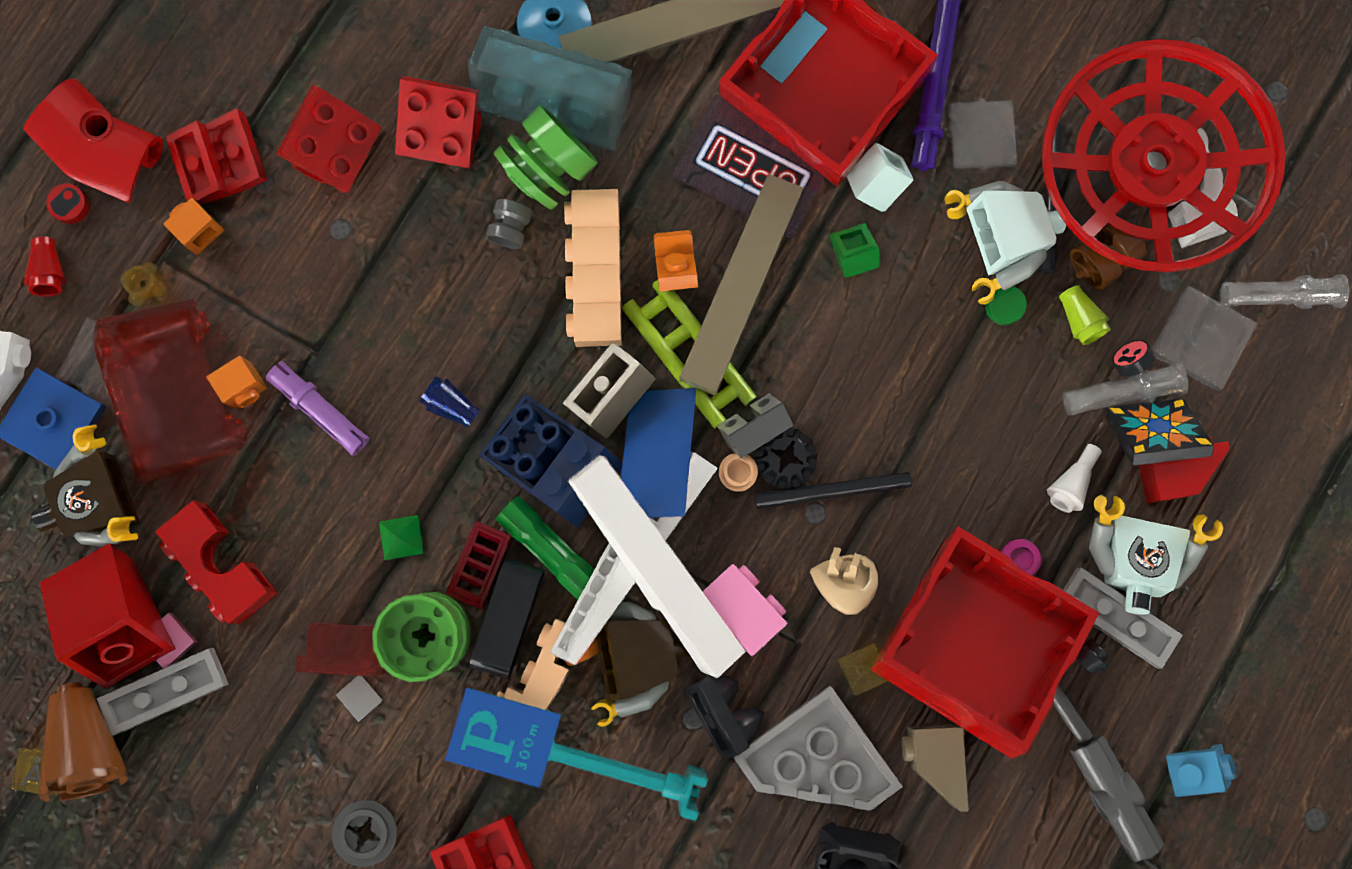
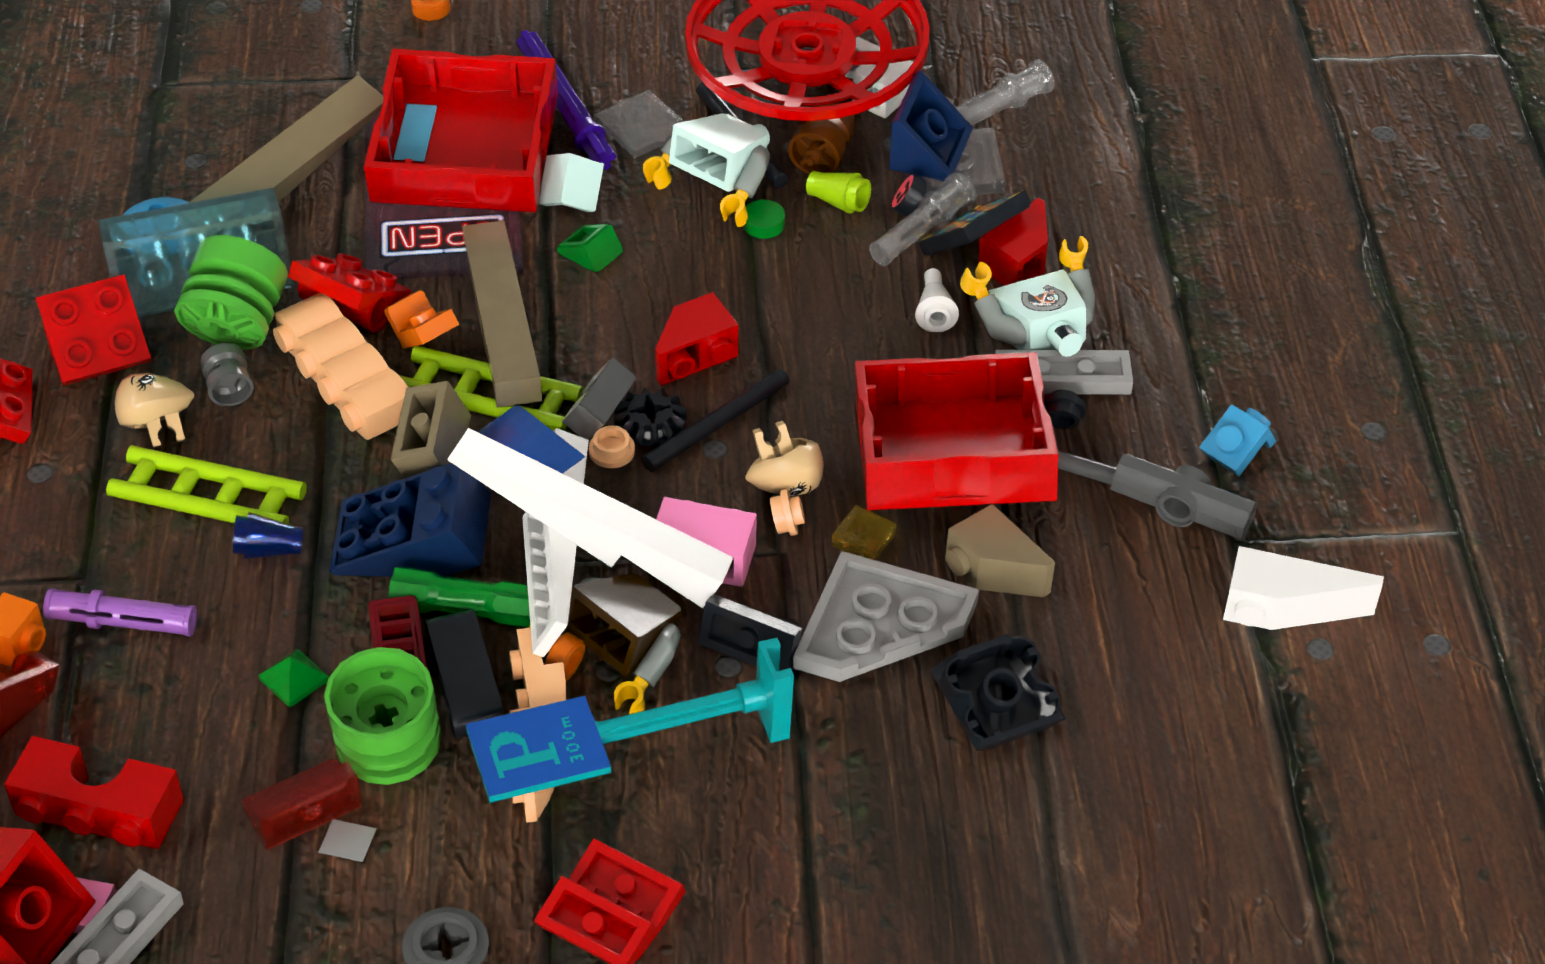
camera: 35 degrees left, 35 degrees down
(435, 226) = (147, 400): none -> tan piece
(435, 347) = (190, 472): none -> lime bar
(644, 191) = (354, 289): none -> red plate
(819, 620) = (787, 512): none -> light nougat plate
(867, 405) = (695, 338): none -> red slope
(1193, 312) = (927, 132): none -> dark blue slope

